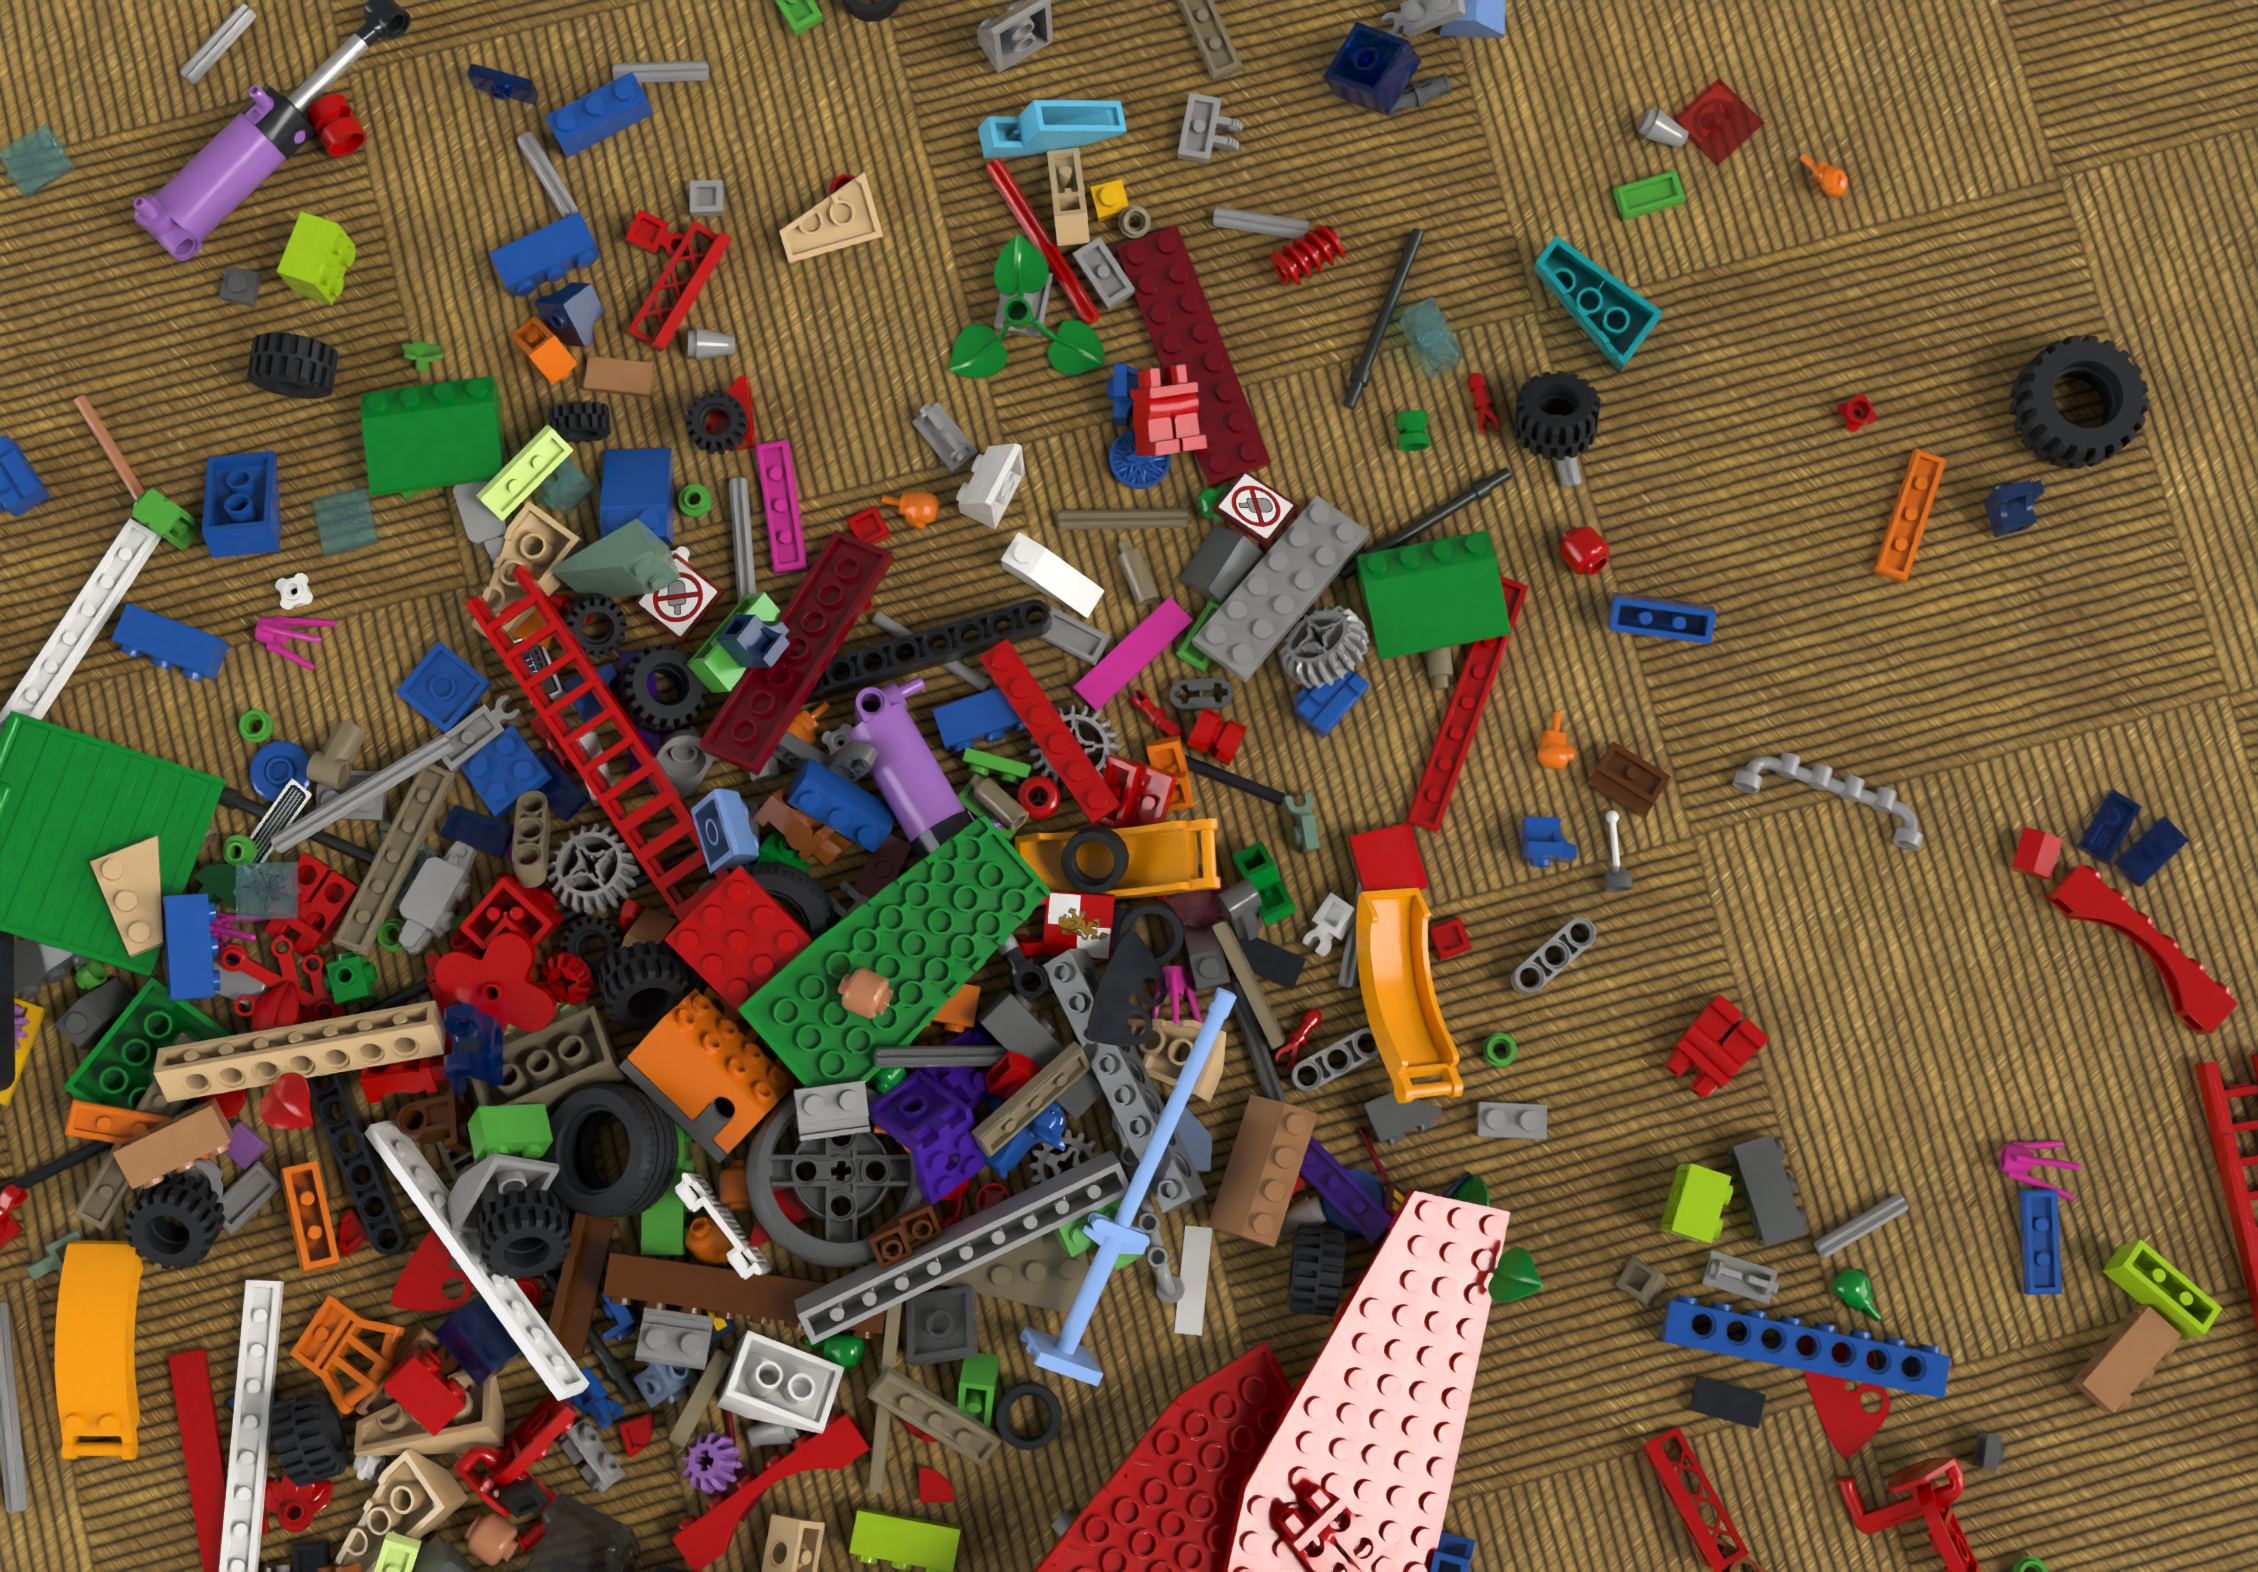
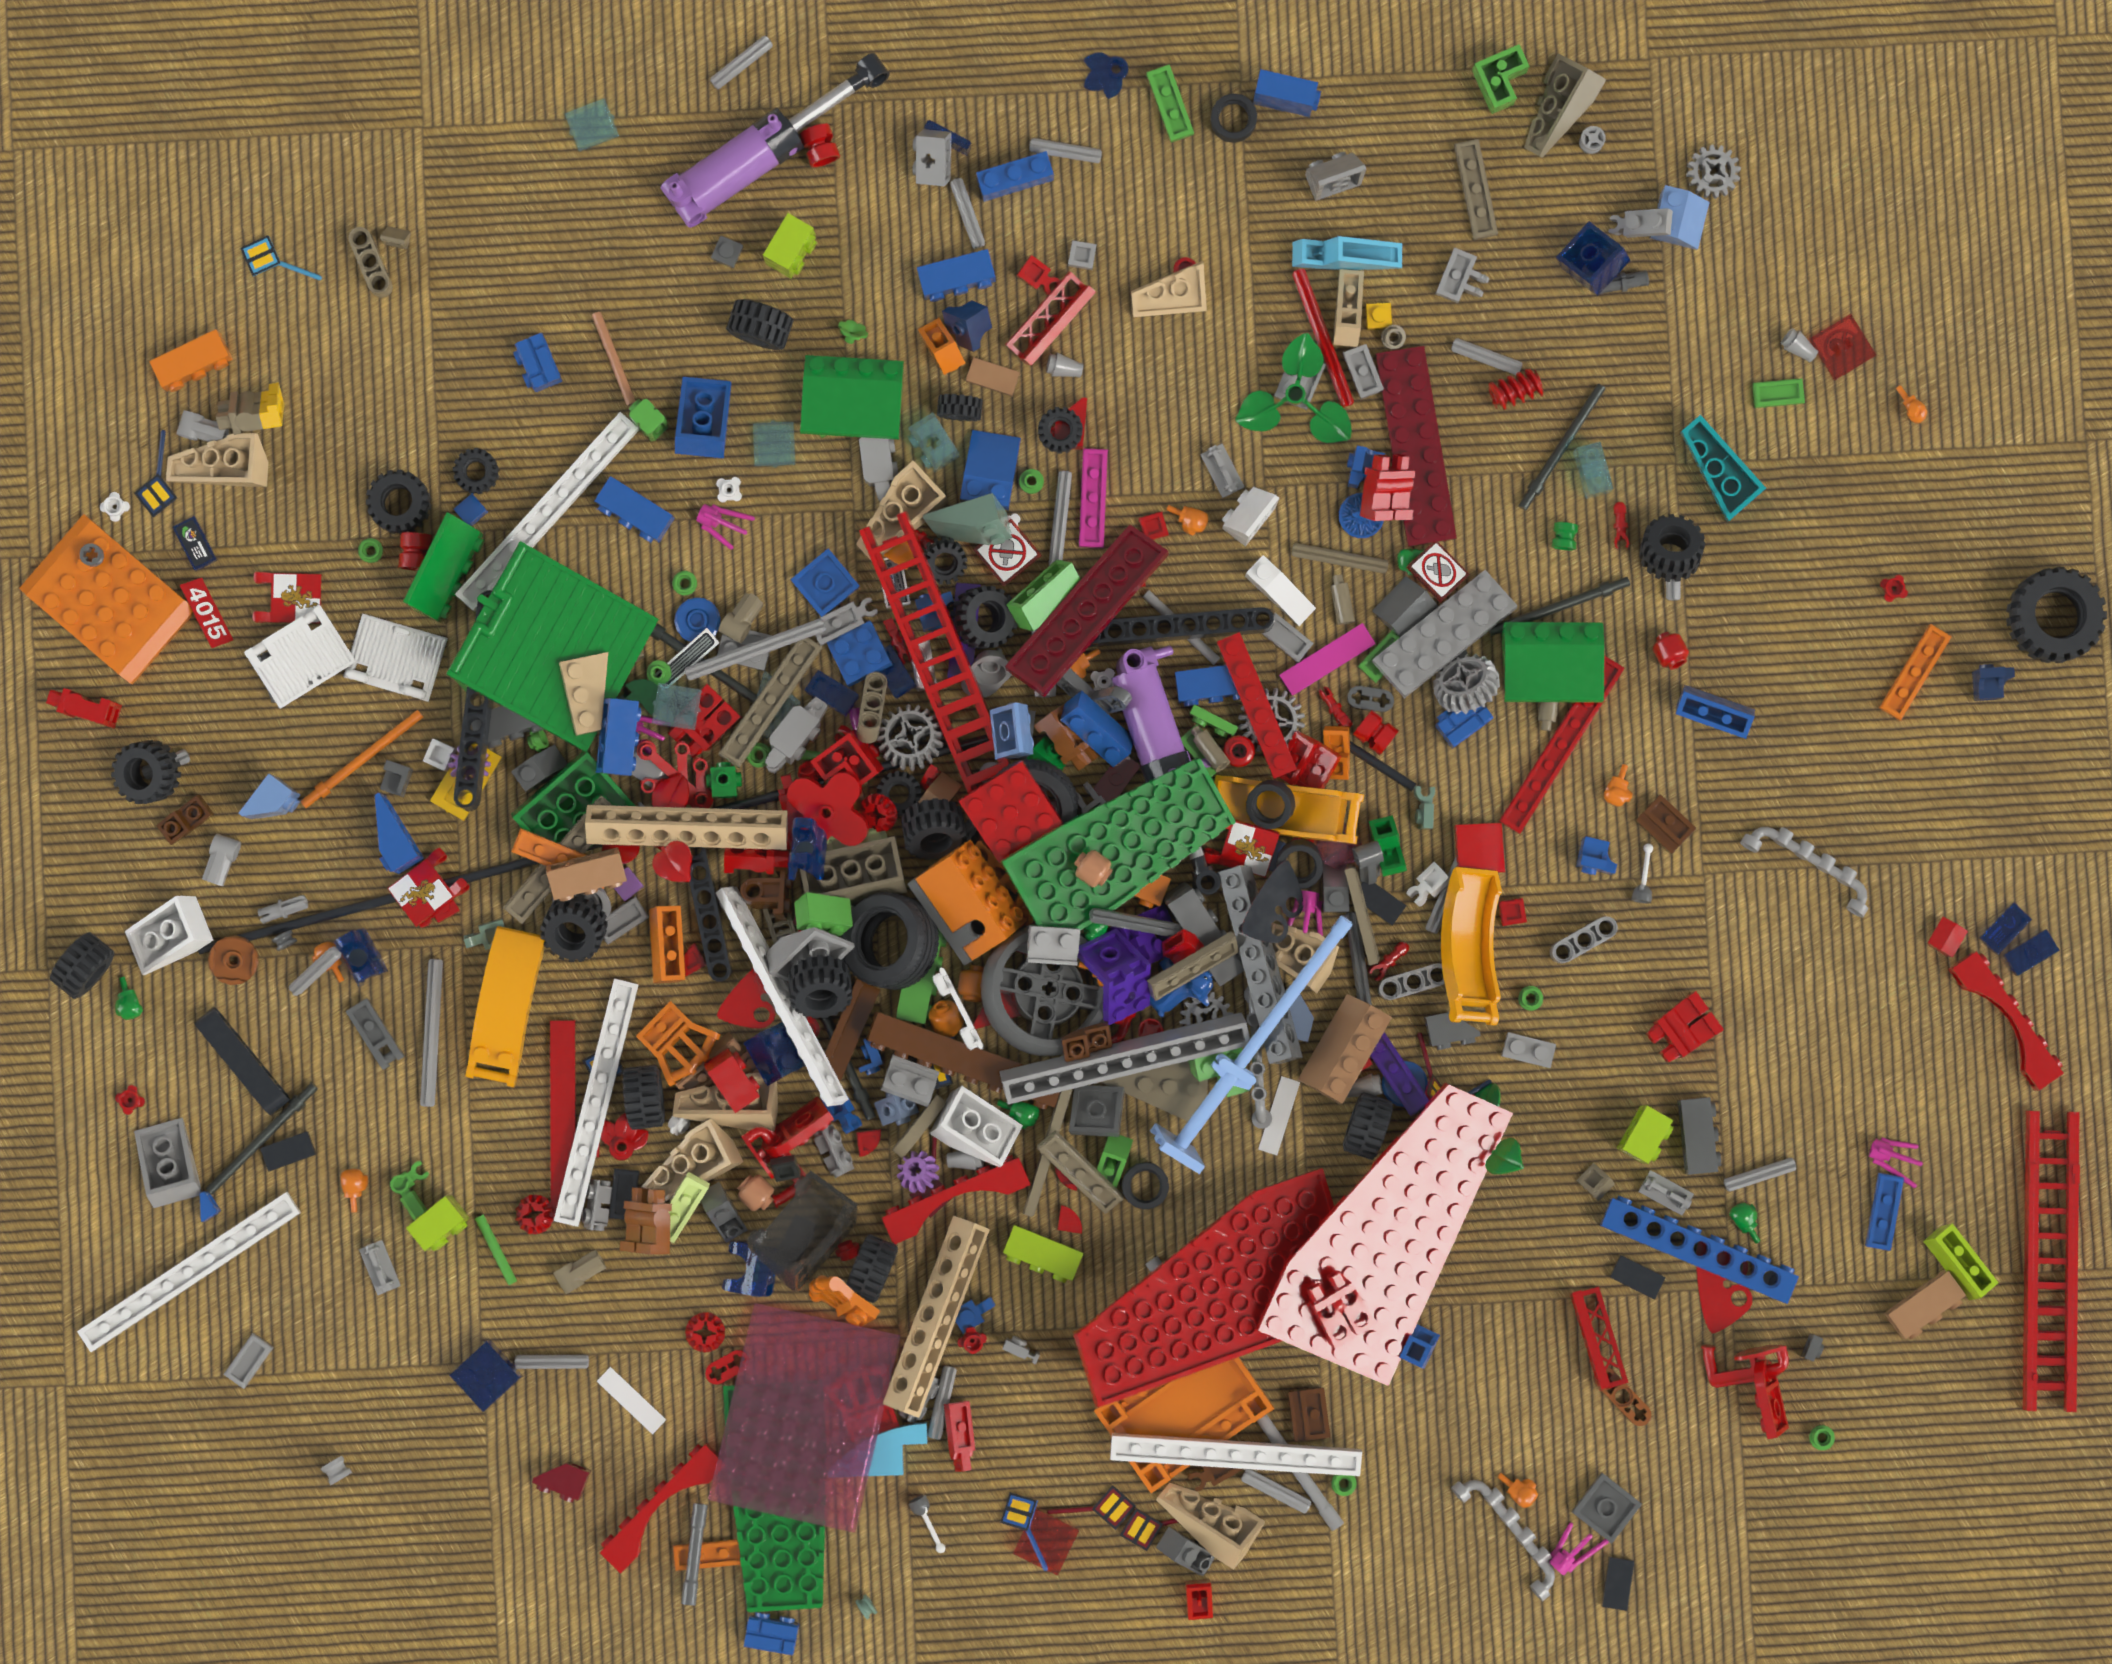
camera: 10 degrees right, 5 degrees up
(486, 92) = (939, 147): none -> light grey brick
(524, 472) = (915, 439): yellowish green plate -> none
(754, 641) = (1059, 599): brick -> none

